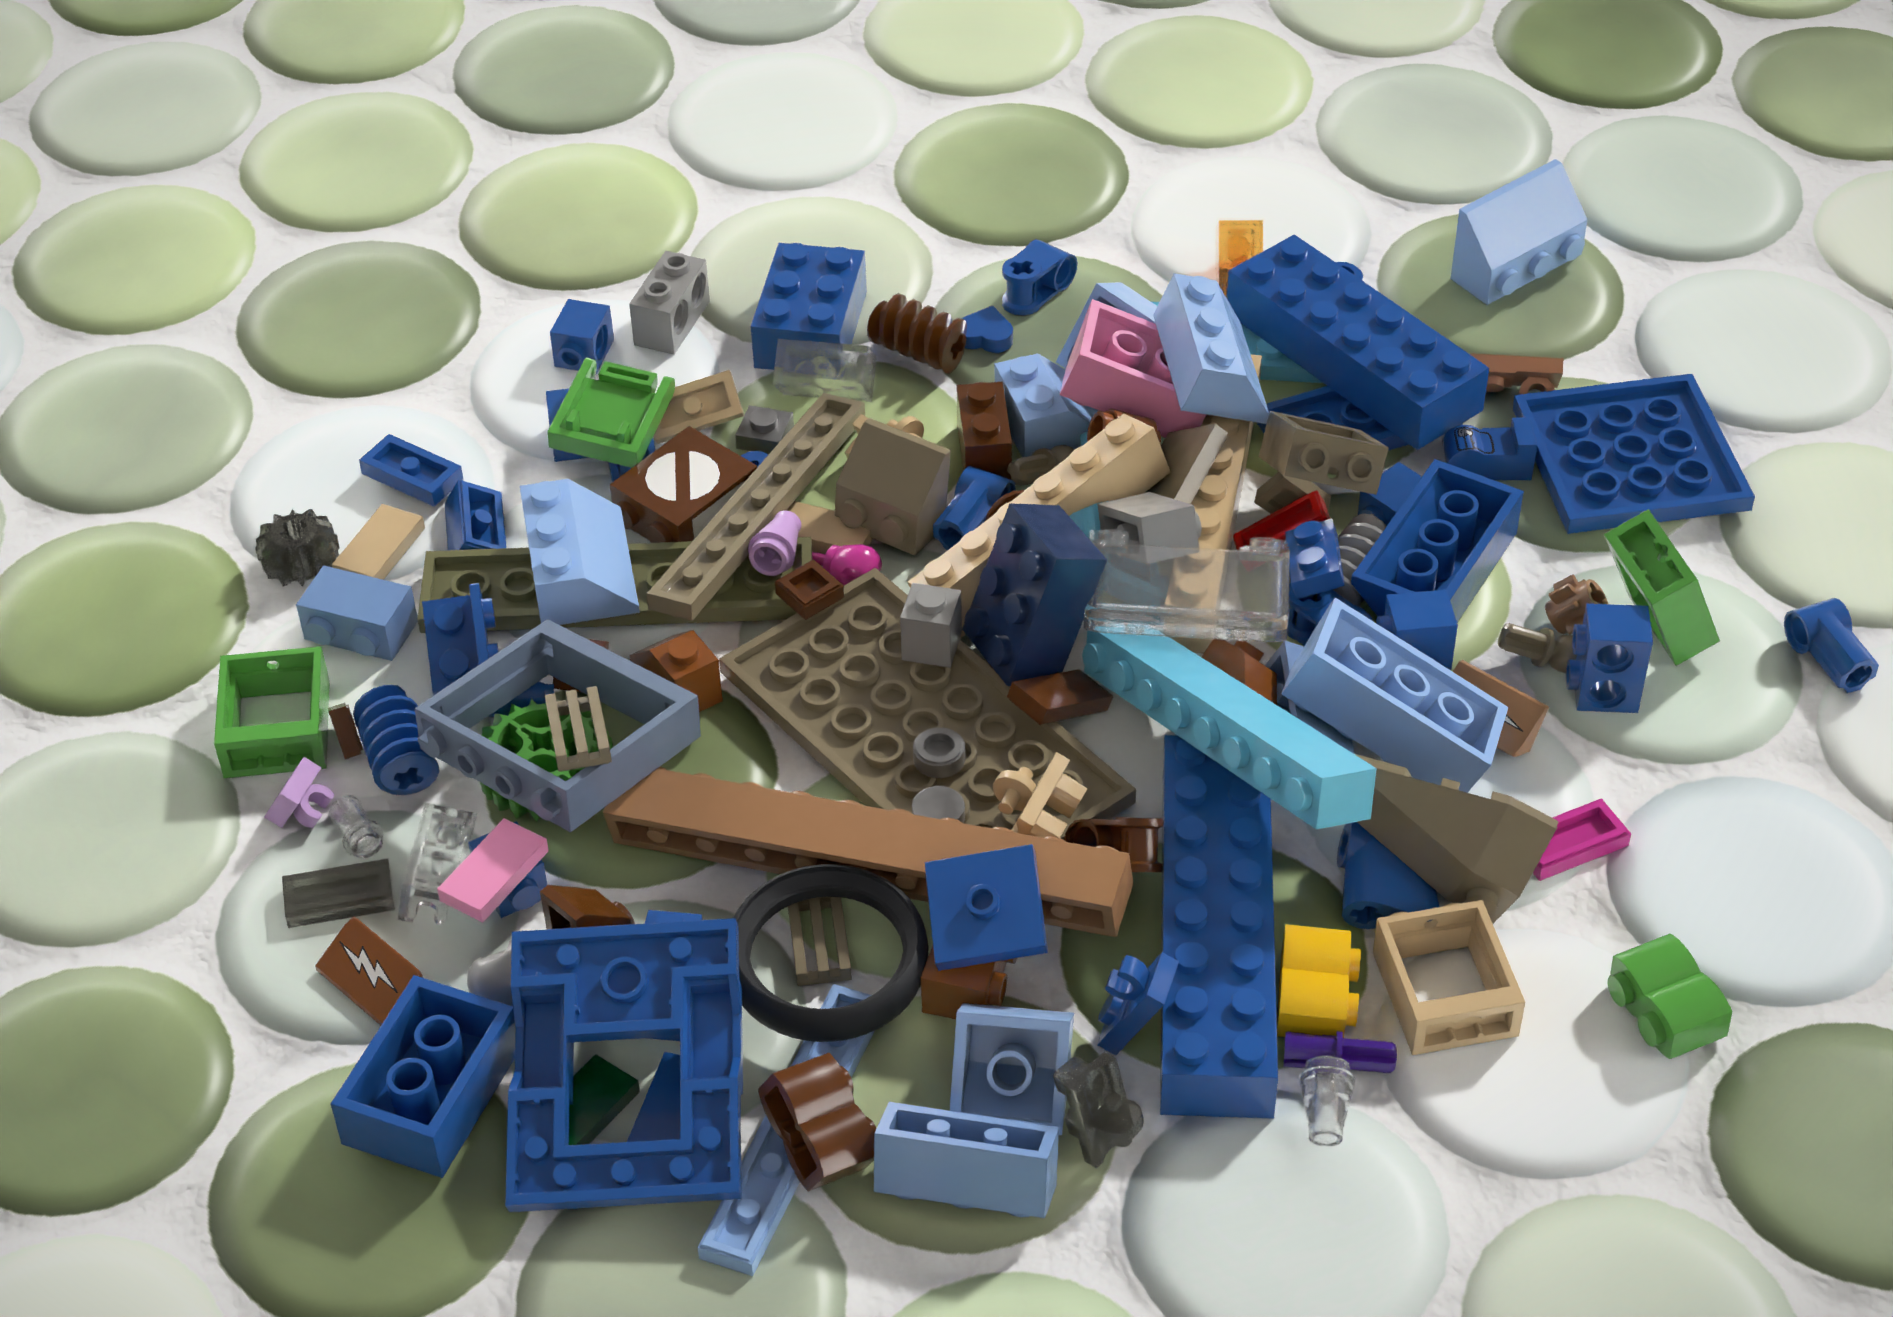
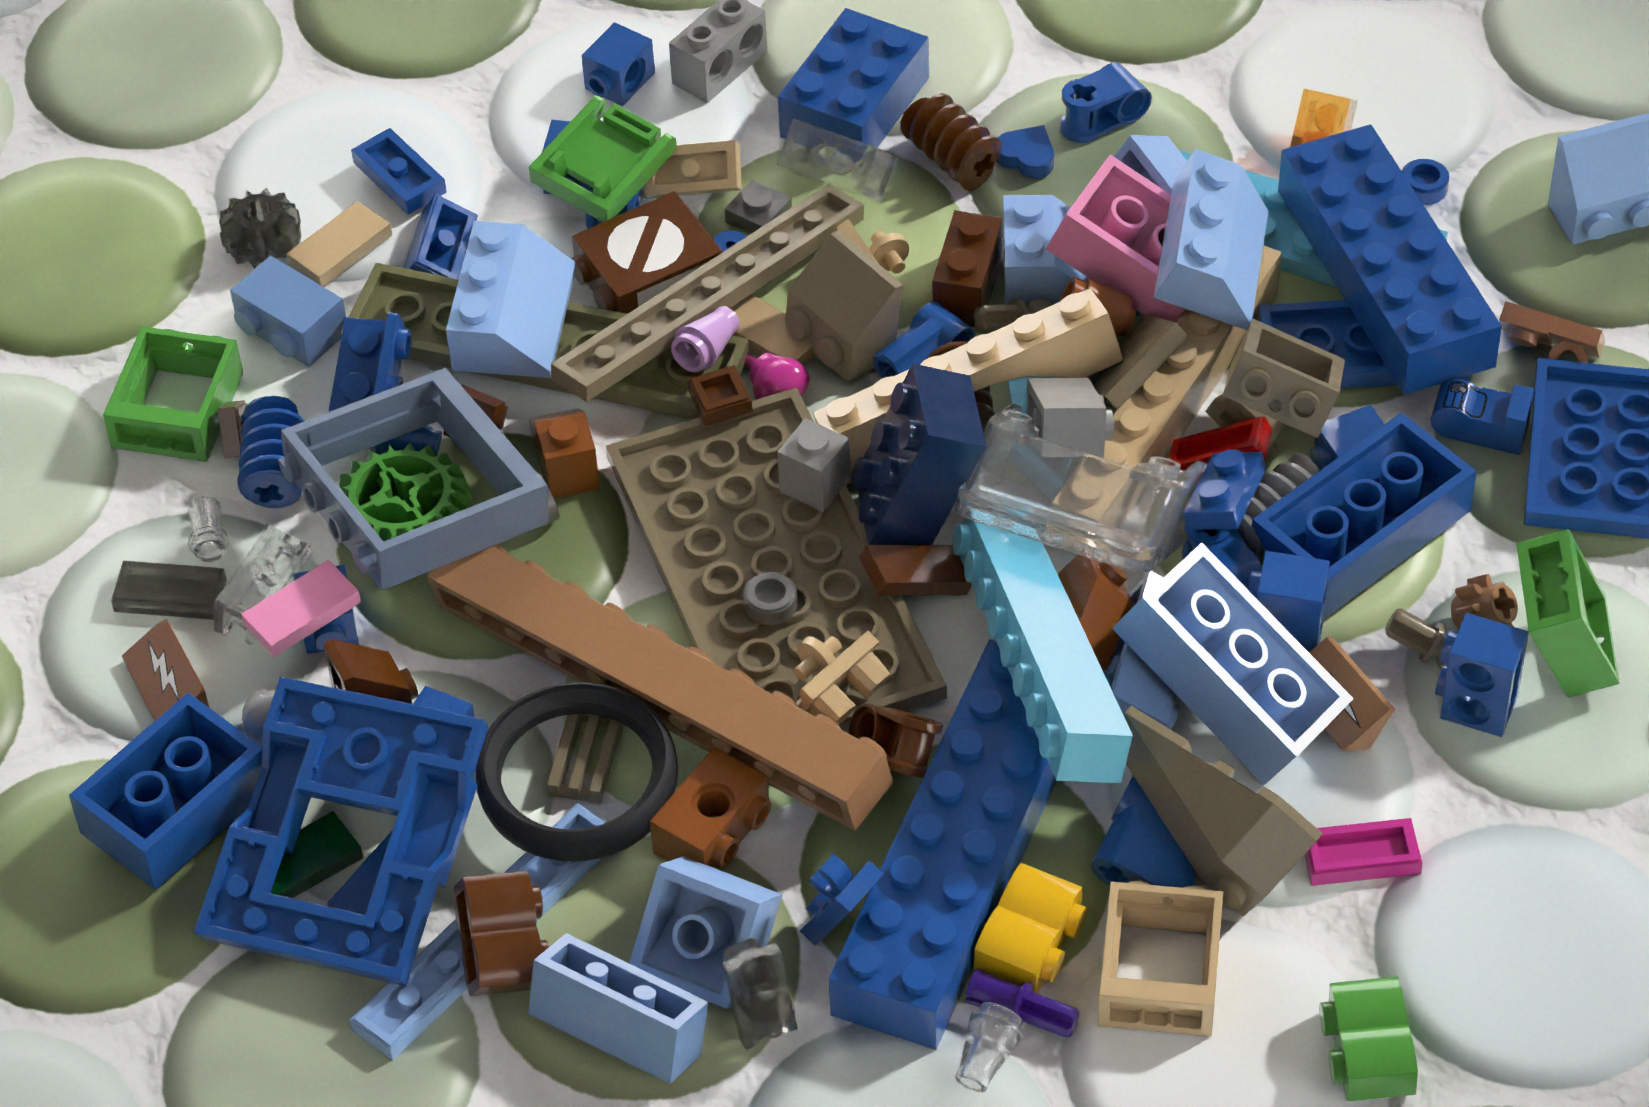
camera: 20 degrees right, 5 degrees up
(297, 795) = (164, 481): lavender tile -> none
(574, 706) = (421, 467): dark tan tile -> none
(939, 803) = (743, 652): flat silver tile -> none
(985, 907) = (729, 769): blue plate -> none

